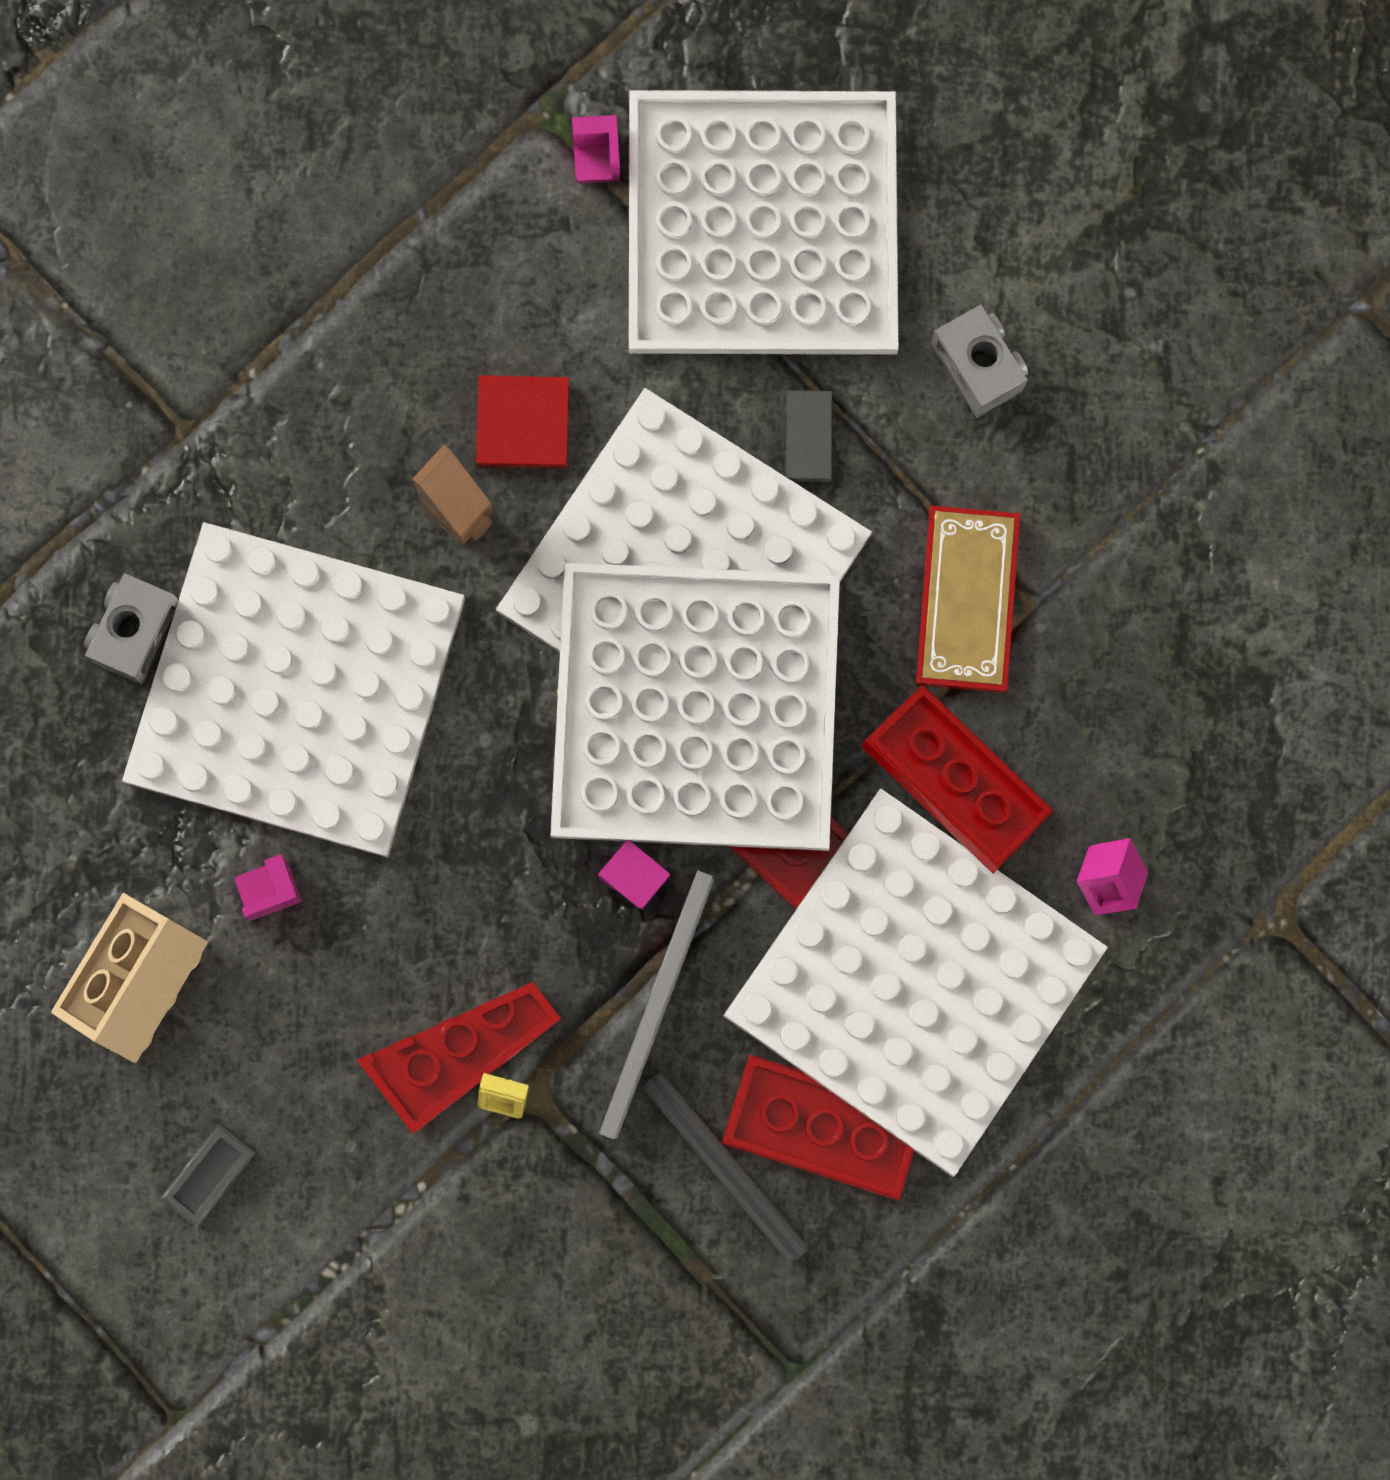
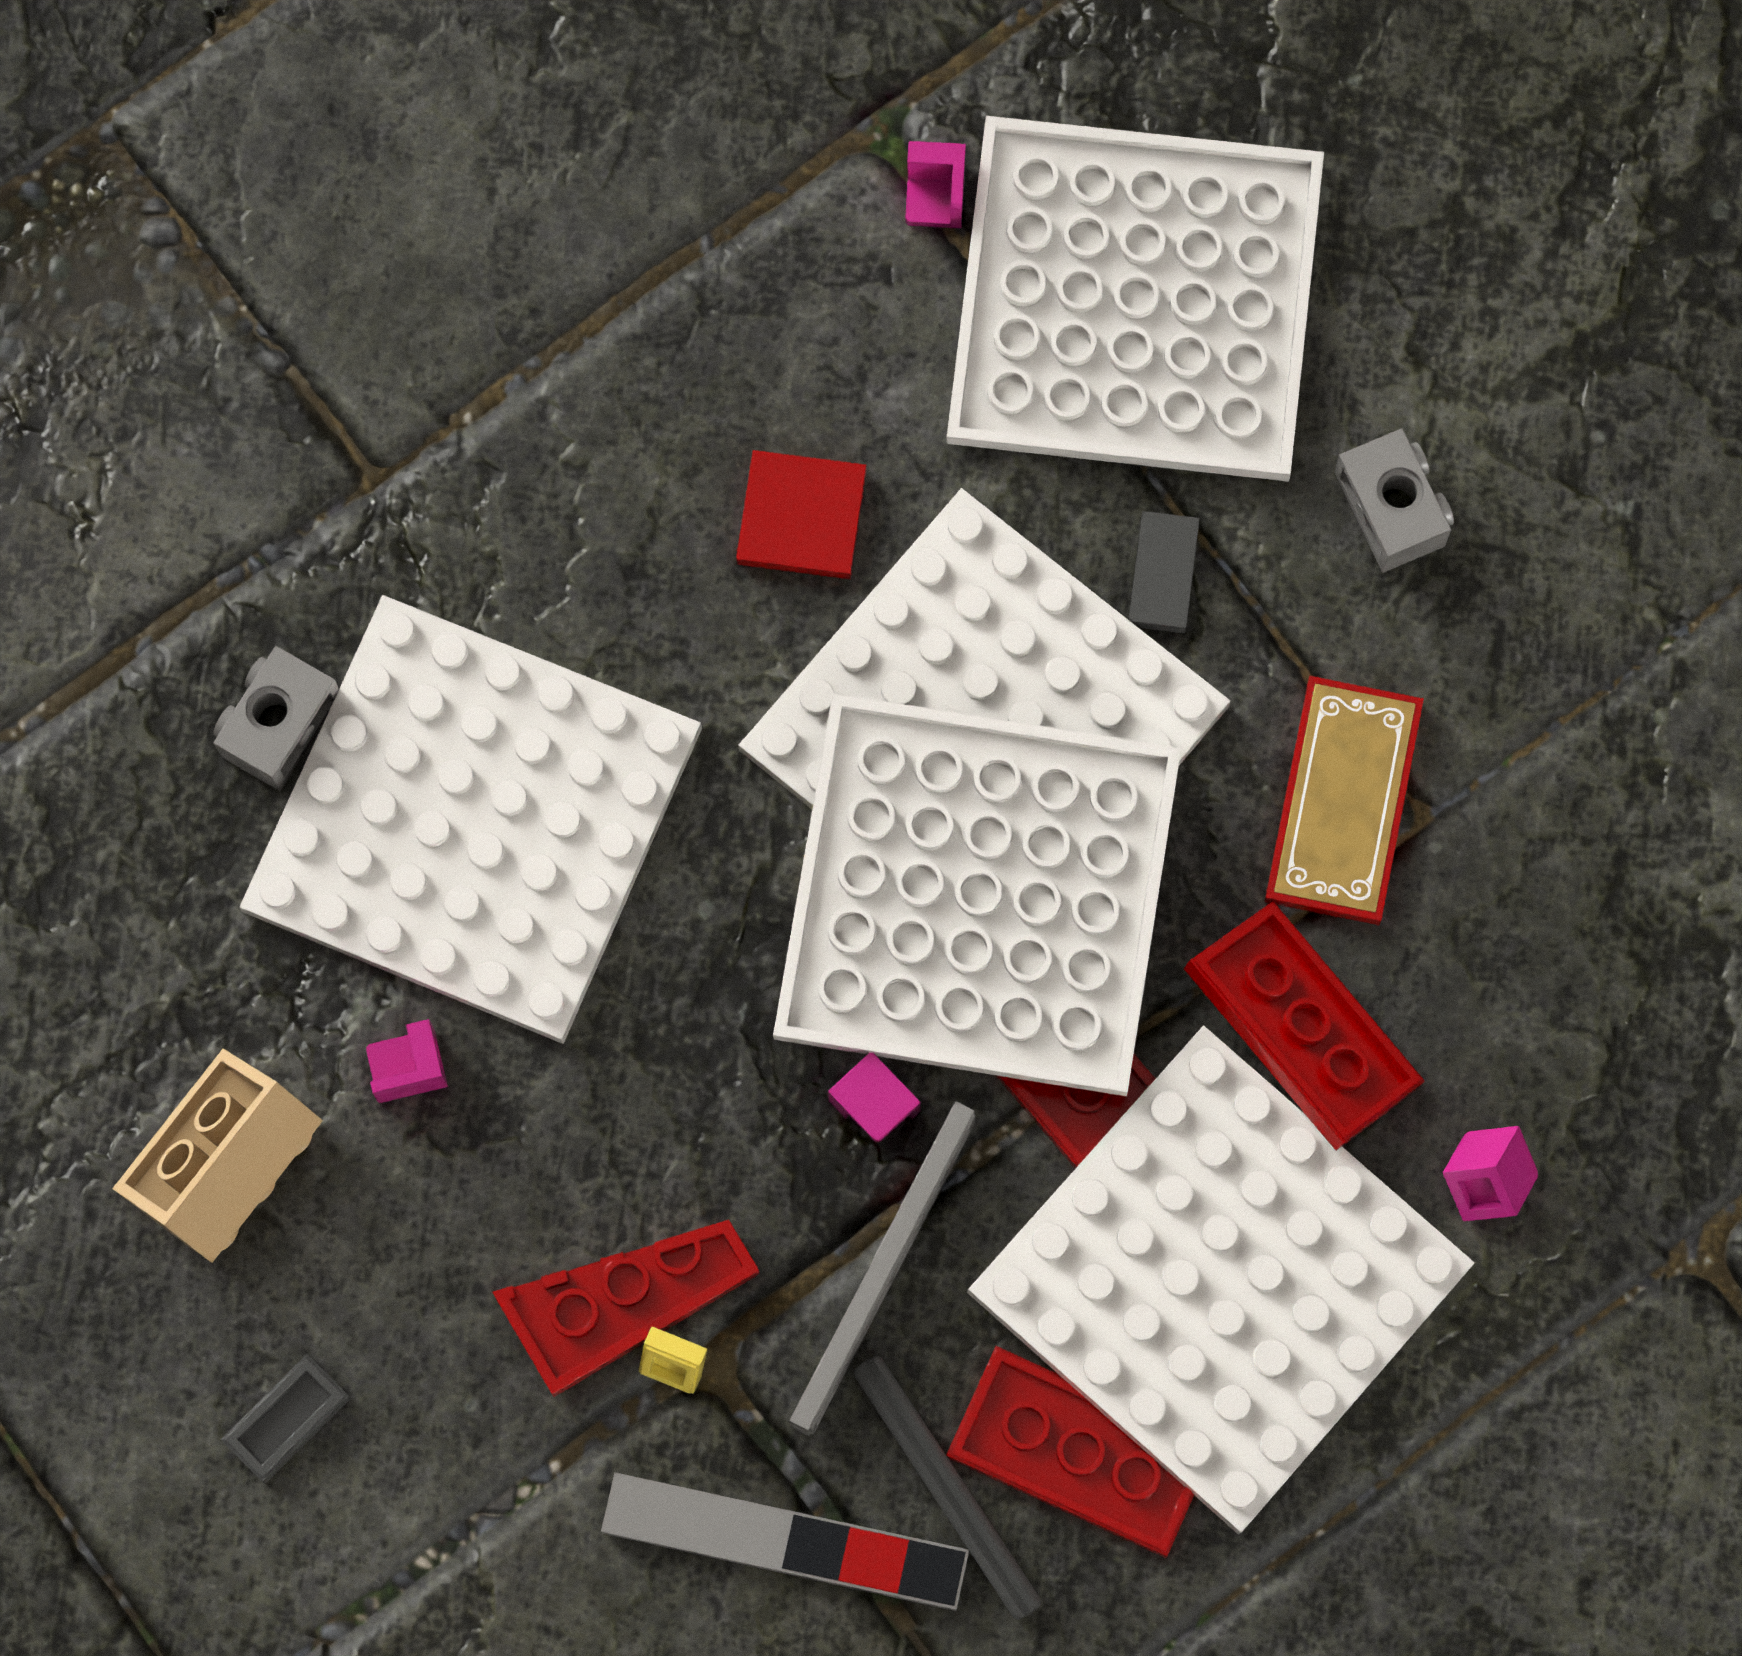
camera: 15 degrees right, 5 degrees down
(453, 497) = (700, 595): medium nougat slope -> none
(605, 1224) = (785, 1541): none -> tile

